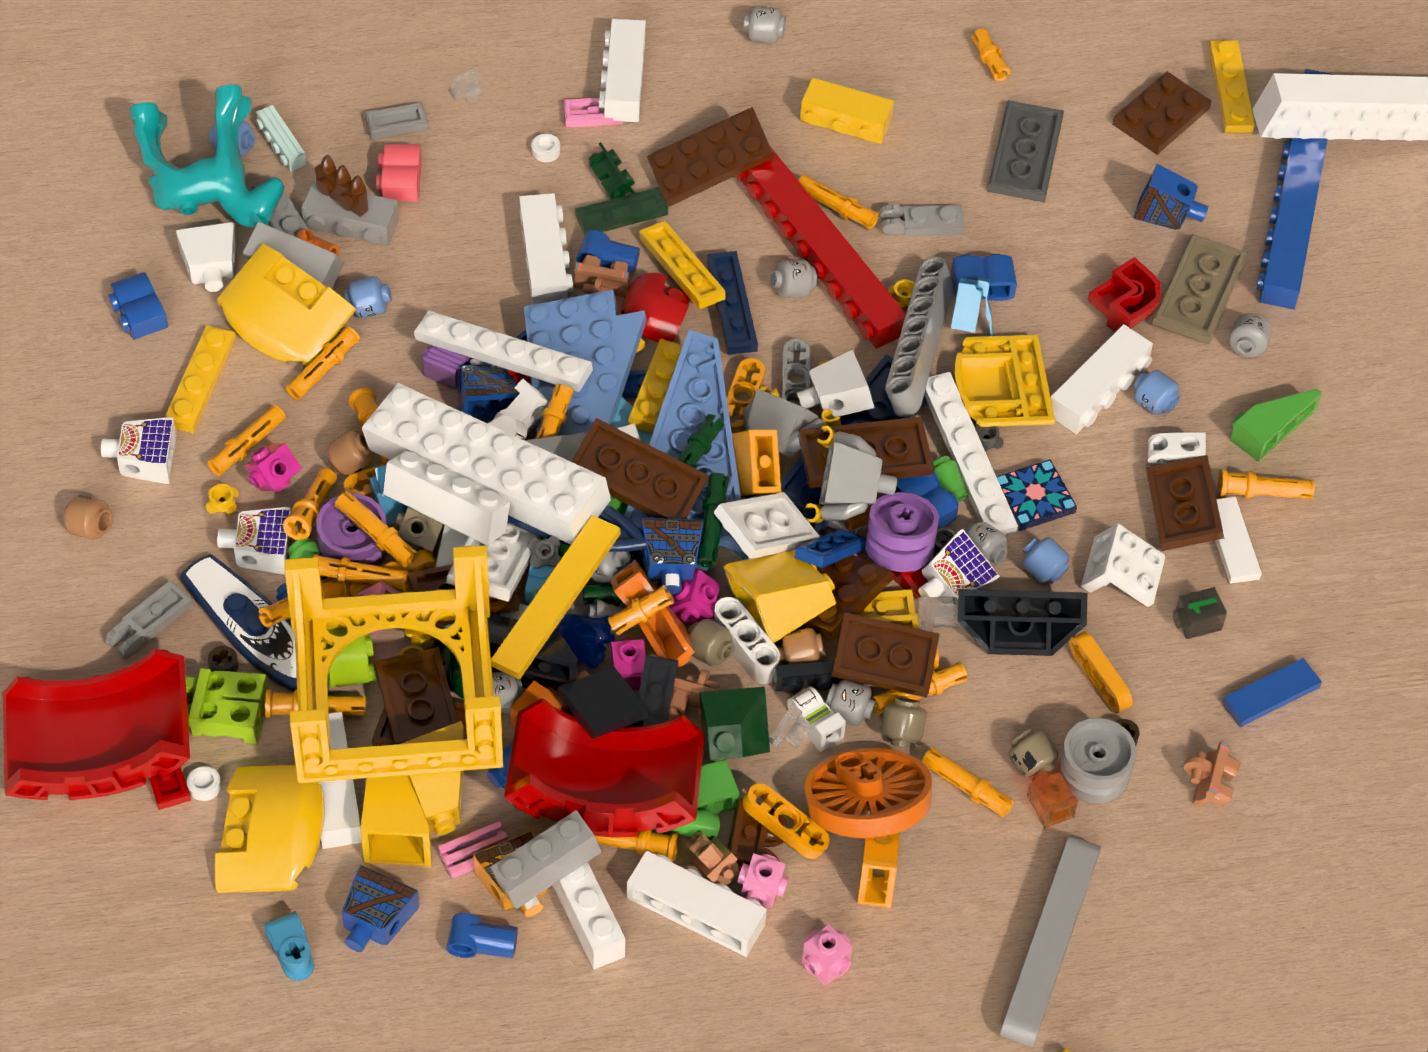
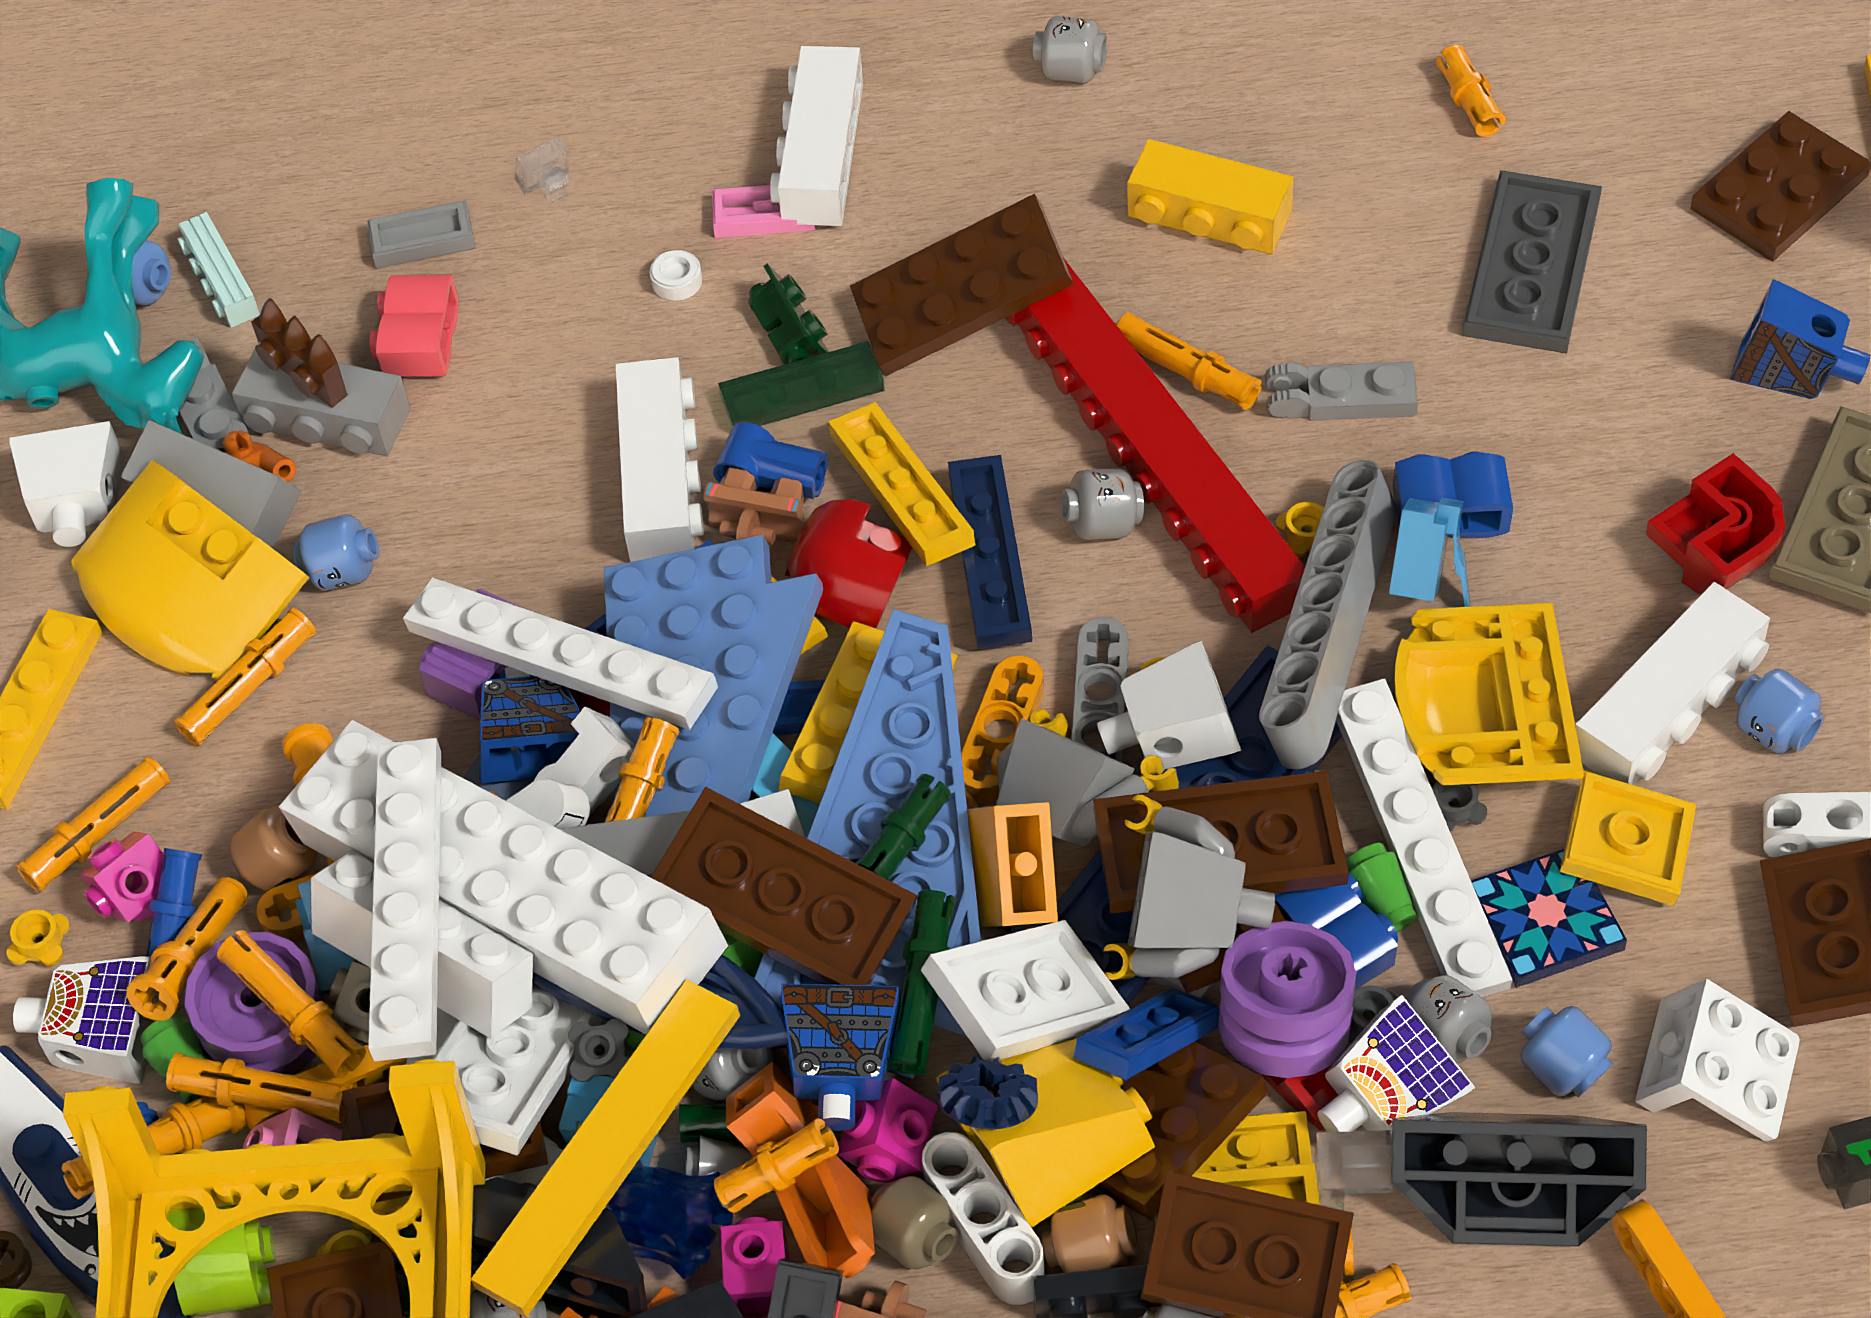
camera: 10 degrees right, 0 degrees up
(299, 477) = (174, 897): none -> blue pin
(442, 471) = (405, 901): none -> white plate
(752, 571) = (966, 1098): none -> dark blue gear
(1077, 455) = (1628, 838): none -> yellow tile

